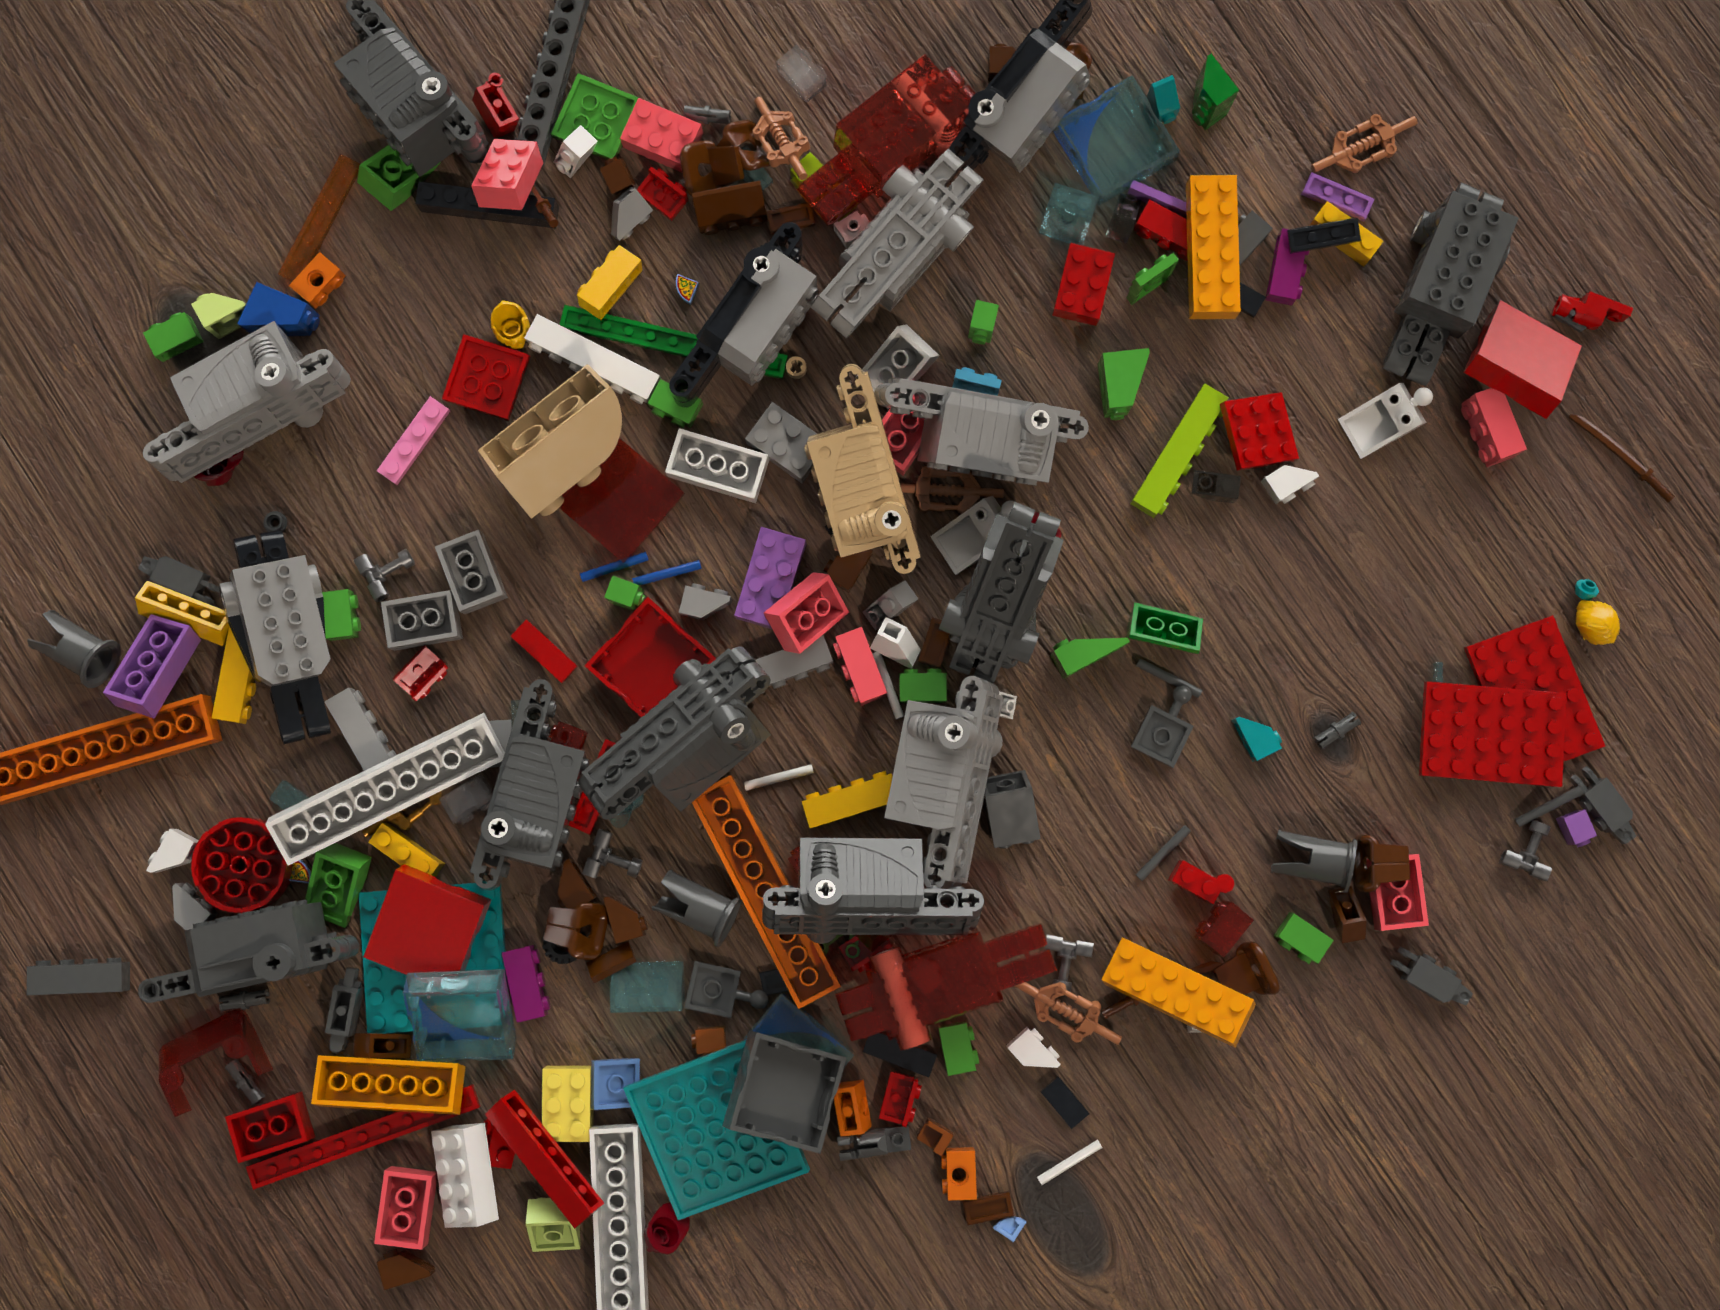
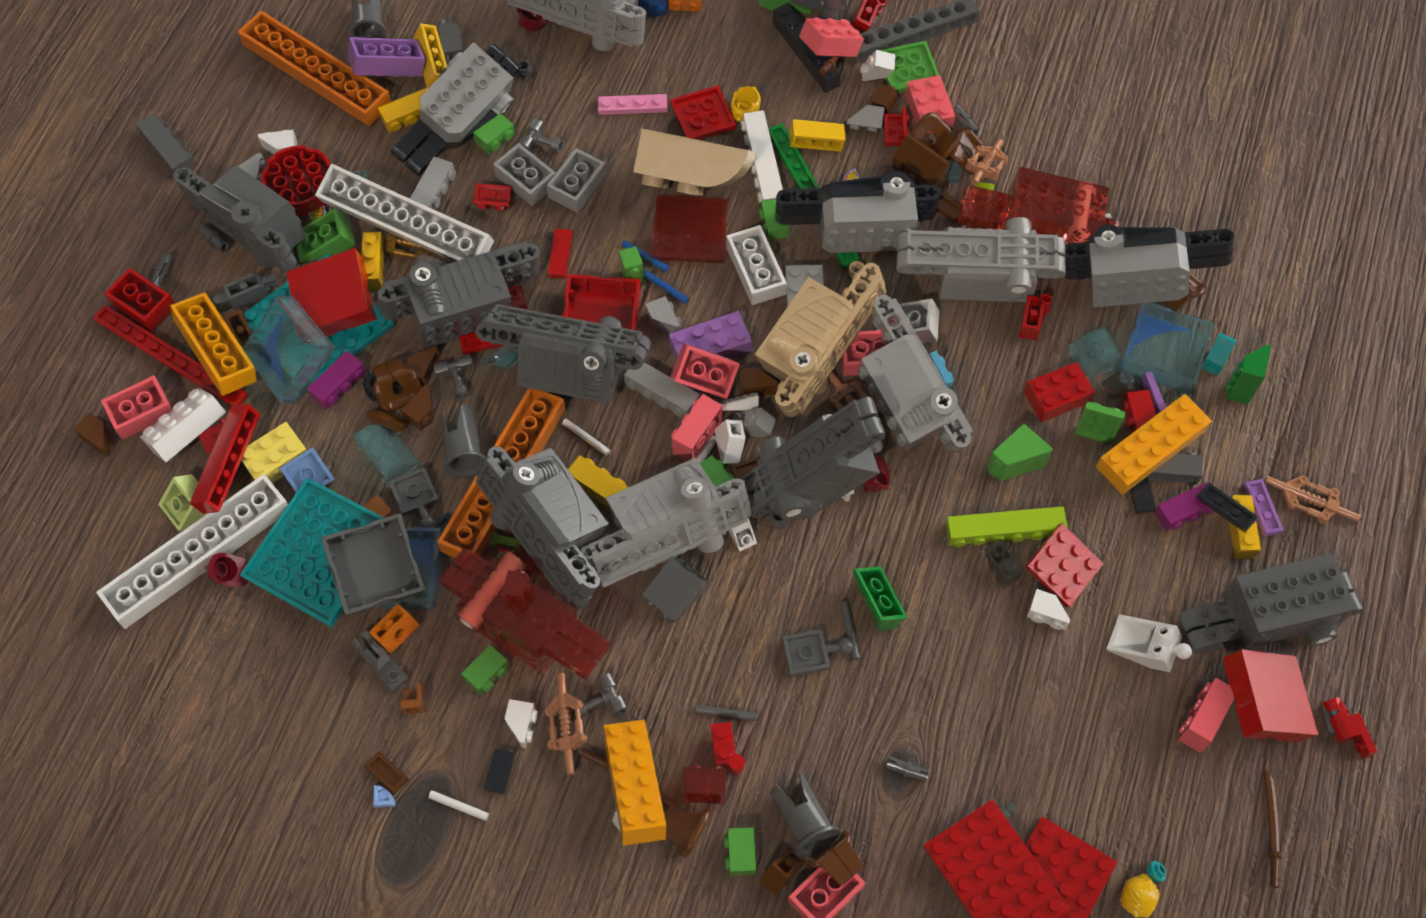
camera: 50 degrees right, 20 degrees down
(230, 1030) = (182, 241): clear red windscreen -> none
(802, 73) = (1037, 151): clear brick -> none
(860, 599) = (743, 402): none -> white slope
(899, 1098) = (423, 657): red bracket -> none
(913, 1059) = (455, 639): black tile -> none
(959, 1188) = (393, 745): orange brick -> none
(983, 322) = (980, 348): bright green brick -> none
(987, 241) = (1032, 316): none -> red hinge
(1080, 653) = (820, 559): bright green slope -> none
(1257, 738) = (857, 717): teal slope -> none

